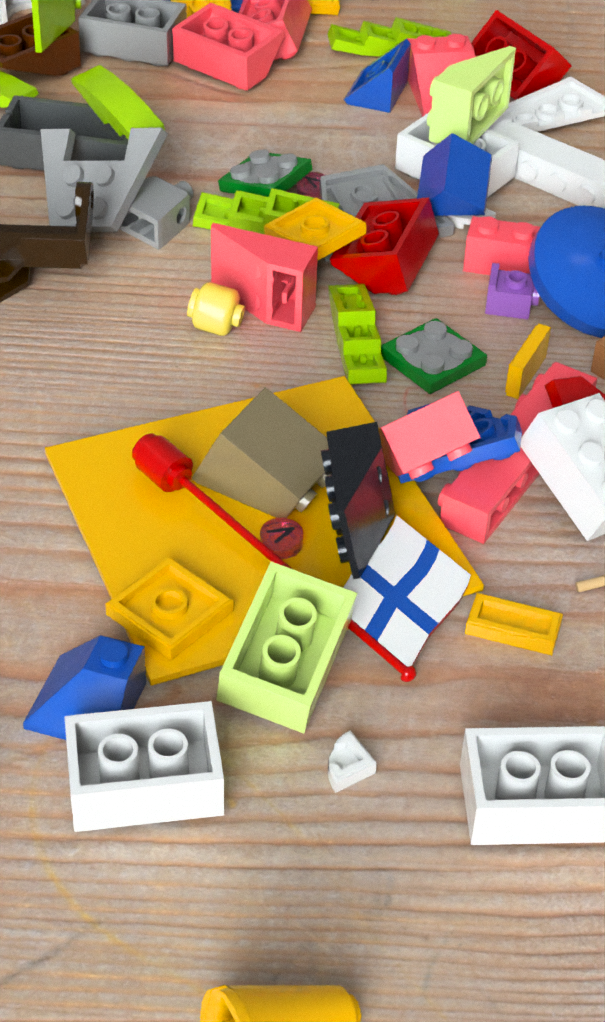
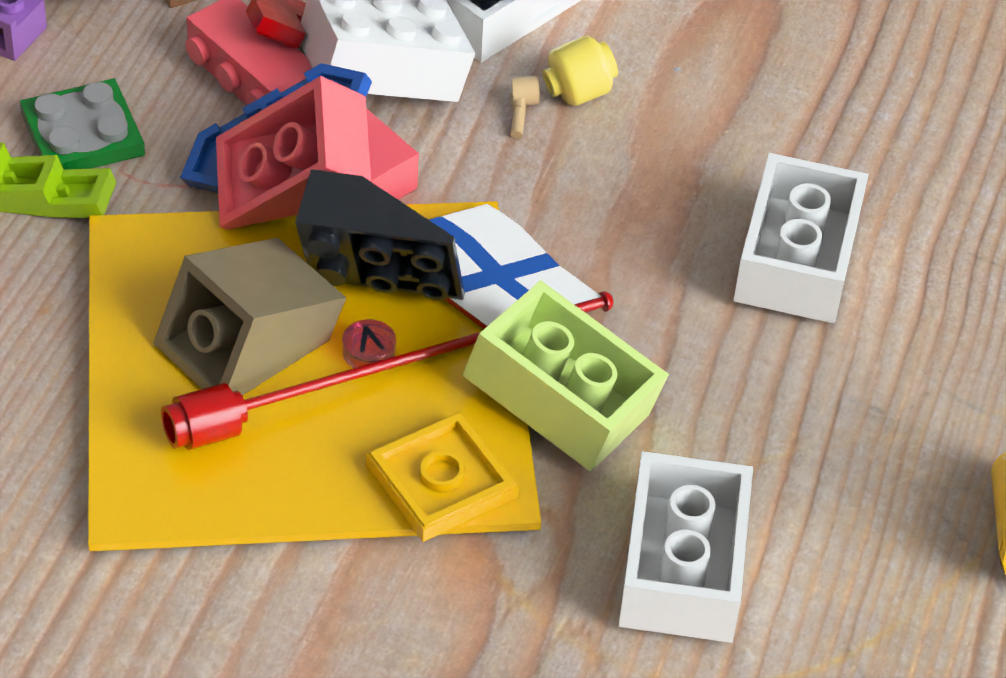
camera: 75 degrees left, 5 degrees up
(86, 680) = (541, 583): blue slope -> none
(349, 762) = (701, 388): white tile -> none
(514, 624) = (554, 199): yellow tile -> none
(527, 361) = (149, 46): yellow tile -> none

